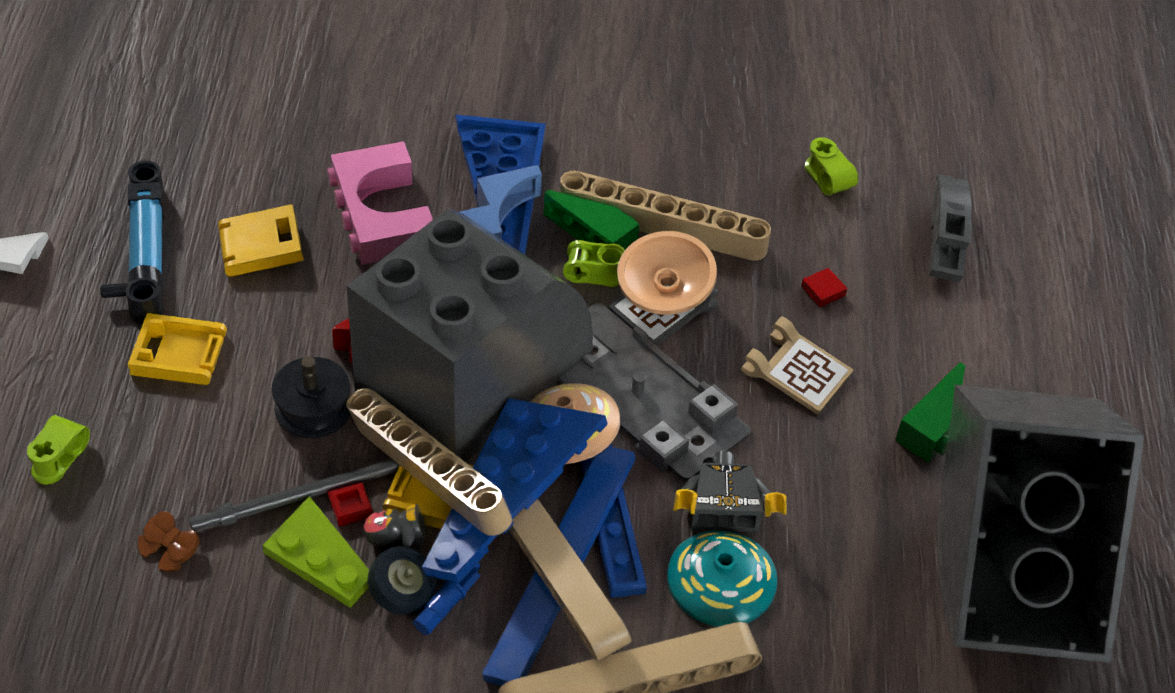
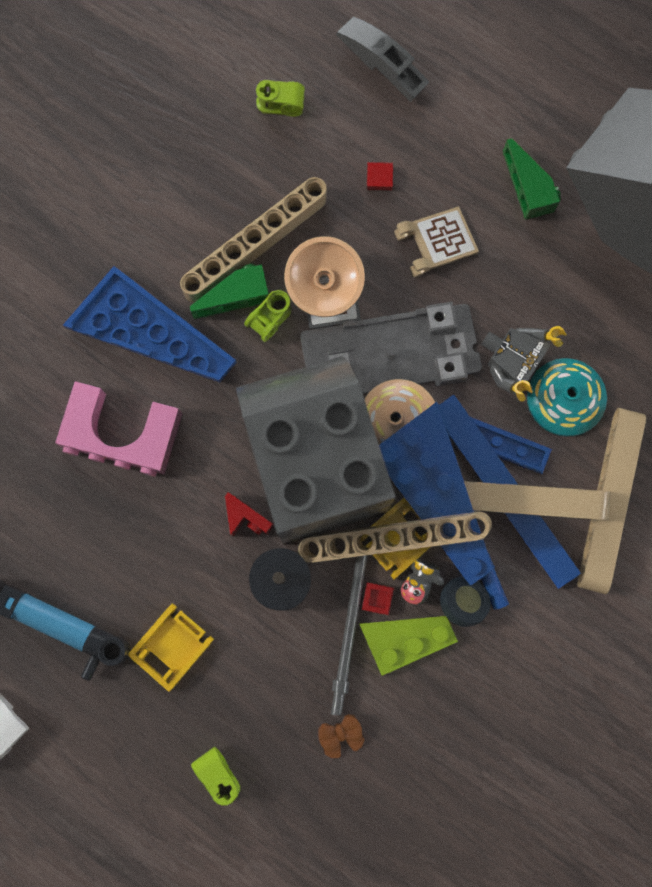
camera: 55 degrees left, 30 degrees up
(253, 242) = (99, 541): yellow container -> none
(501, 194) = (200, 377): medium blue arch -> none

